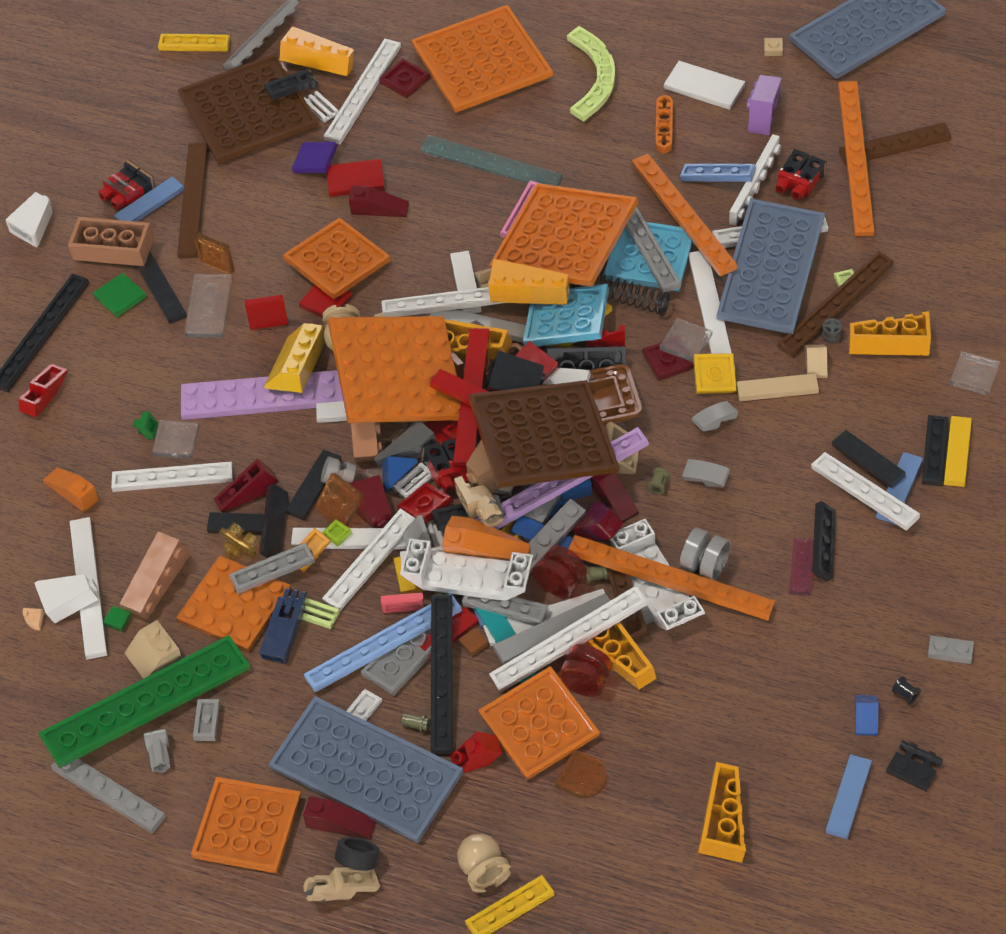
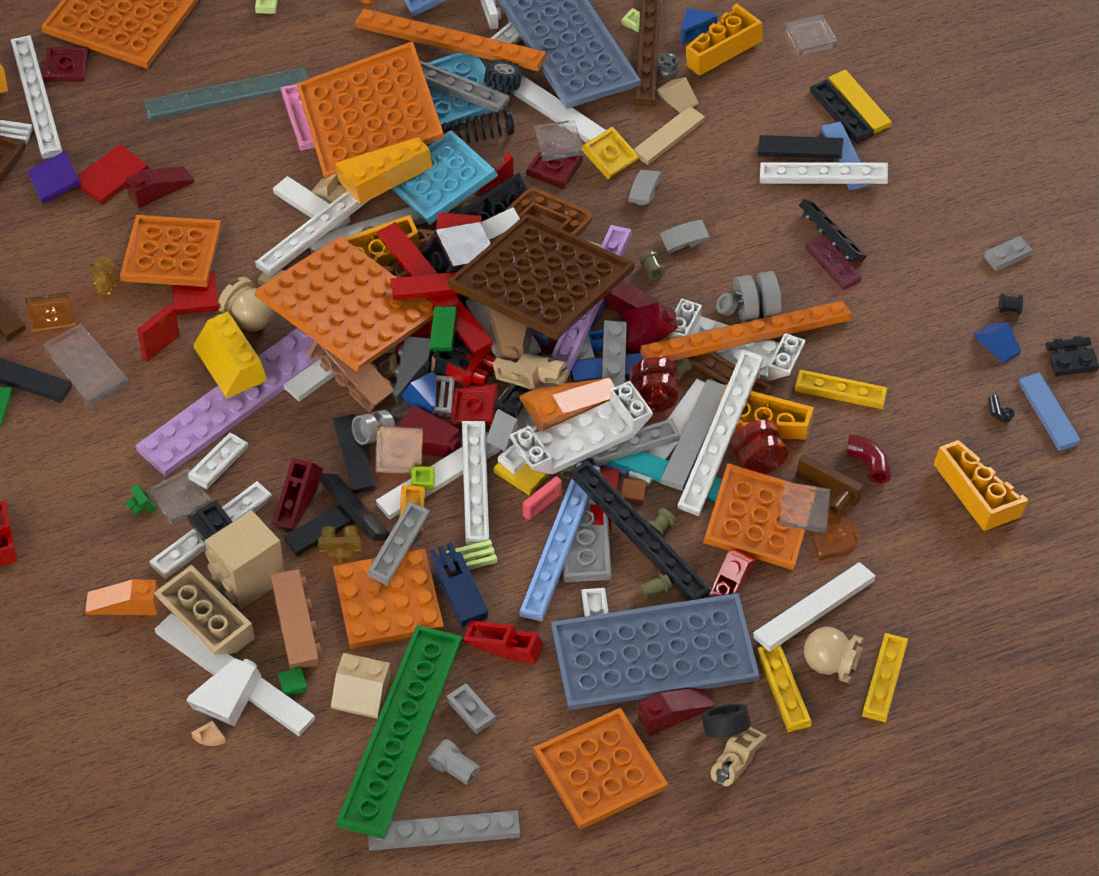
camera: 45 degrees left, 0 degrees up
(103, 531) = (206, 612): none -> tan slope
(155, 506) = (244, 559): none -> tan container
(169, 474) = (209, 520): none -> black plate
(221, 430) = (218, 461): none -> white tile
(272, 249) = (103, 275): none -> clear yellow hips
(275, 688) = (504, 641): none -> red slope
(430, 861) = (784, 688): none -> yellow tile
(446, 430) = (443, 328): none -> green tile
(465, 678) = (662, 521): none -> olive bush
(510, 818) = (814, 606): none -> white tile
(575, 738) = (804, 507): none -> clear tile
(623, 747) = (841, 486): none -> reddish brown piece
(670, 735) = (873, 455): none -> dark red cylinder
(678, 546) = (726, 304): none -> light grey tile
(689, 264) = (503, 76): none -> black wheel
(704, 669) = (841, 389): none -> yellow tile
(807, 768) = (997, 411): none -> black arm
(884, 307) = (695, 23): none -> blue slope

